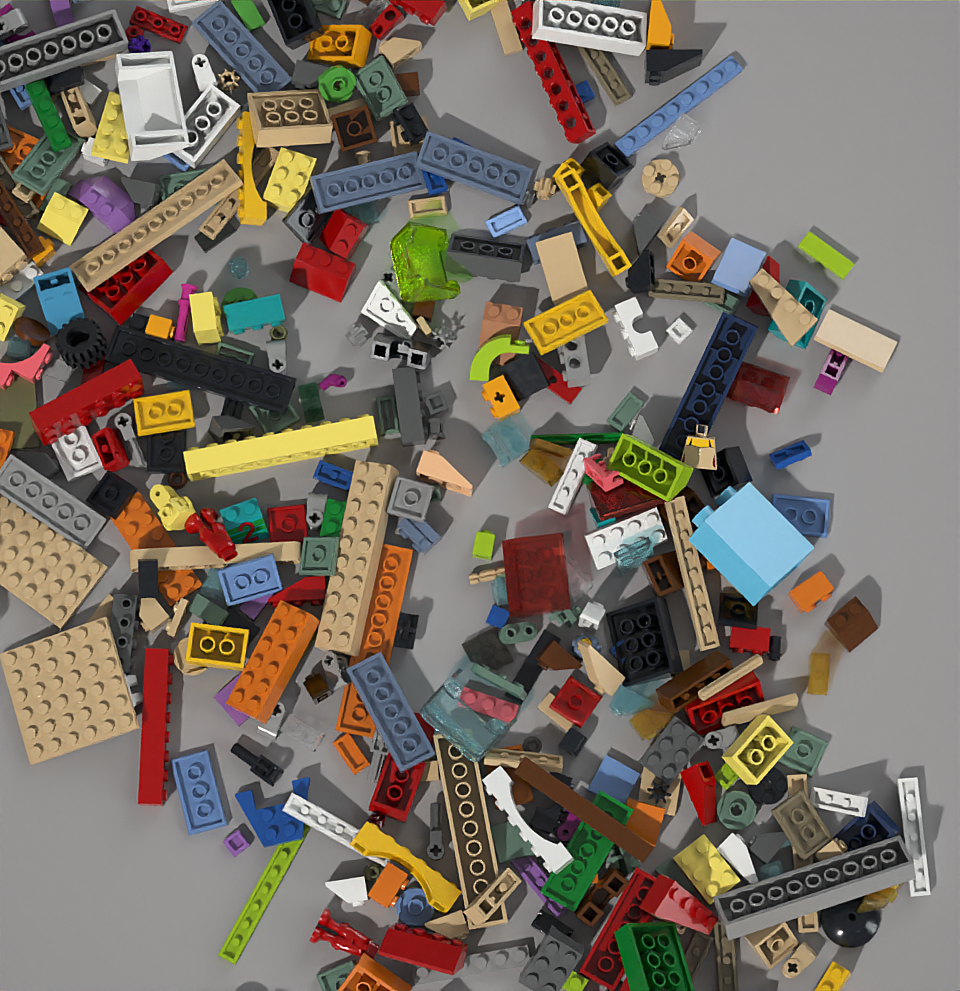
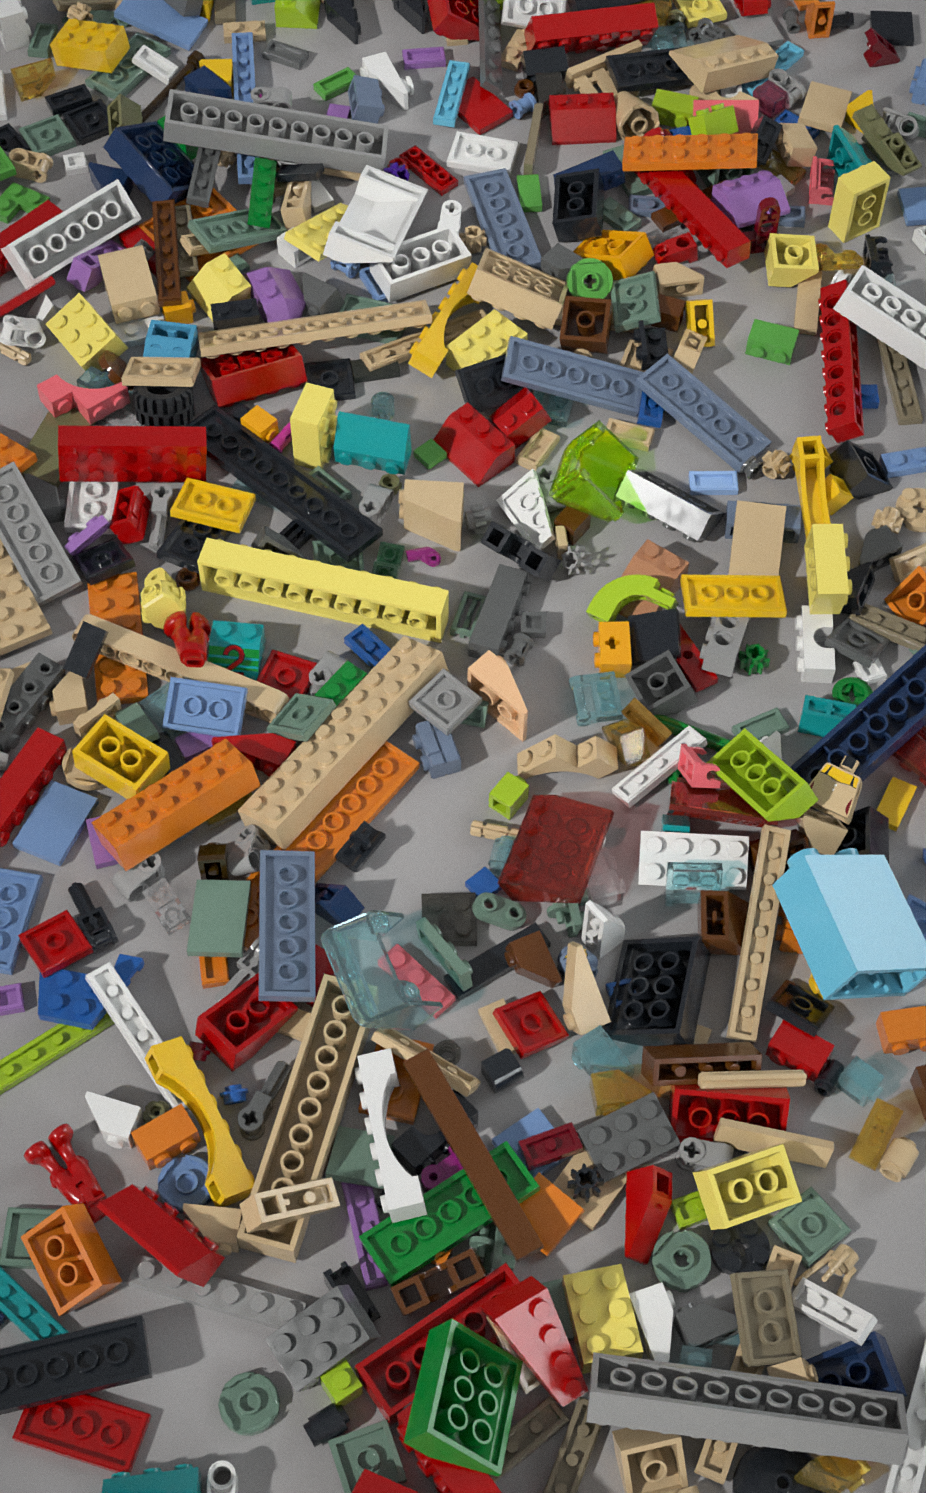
camera: 25 degrees right, 20 degrees down
(67, 321) = (161, 371): none -> tan tile
(89, 239) = (235, 314): none -> black brick
(93, 473) = (95, 528): none -> medium lavender plate
(187, 260) = (332, 375): none -> black tile
(194, 707) = (55, 823): none -> medium blue tile
(246, 793) = (55, 943): none -> red tile
(293, 292) = (429, 454): none -> bright green tile
(325, 346) = (433, 510): none -> tan slope
(343, 726) = (219, 918): none -> sand green tile
(368, 252) = (537, 449): none -> tan tile
(412, 679) = (336, 903): none -> dark blue slope
(415, 838) = (234, 1094): none -> blue plate
(434, 82) = (700, 318): none -> yellow slope
(439, 115) = (690, 349): none -> tan slope
(495, 76) = (772, 342): none -> bright green brick
(508, 500) = (556, 754): none -> tan arch
(547, 414) = (661, 686): none -> dark grey slope
(595, 366) = (754, 659): none -> green gear
(623, 277) = (827, 569): none -> light yellow brick
(626, 778) = (550, 1146): none -> dark red plate
(643, 202) = (888, 516): none -> tan gear
(663, 315) = (857, 642): none -> dark grey tile
(667, 385) = (822, 715): none -> teal hinge
(680, 350) = (844, 686): none -> green gear
(703, 480) = (822, 831): none -> tan slope
(737, 428) = (896, 801): none -> yellow tile
(795, 642) = (860, 1082): none -> clear light blue brick
(830, 765) = (840, 1262): none -> tan plant
(838, 682) = (898, 1159): none -> tan brick

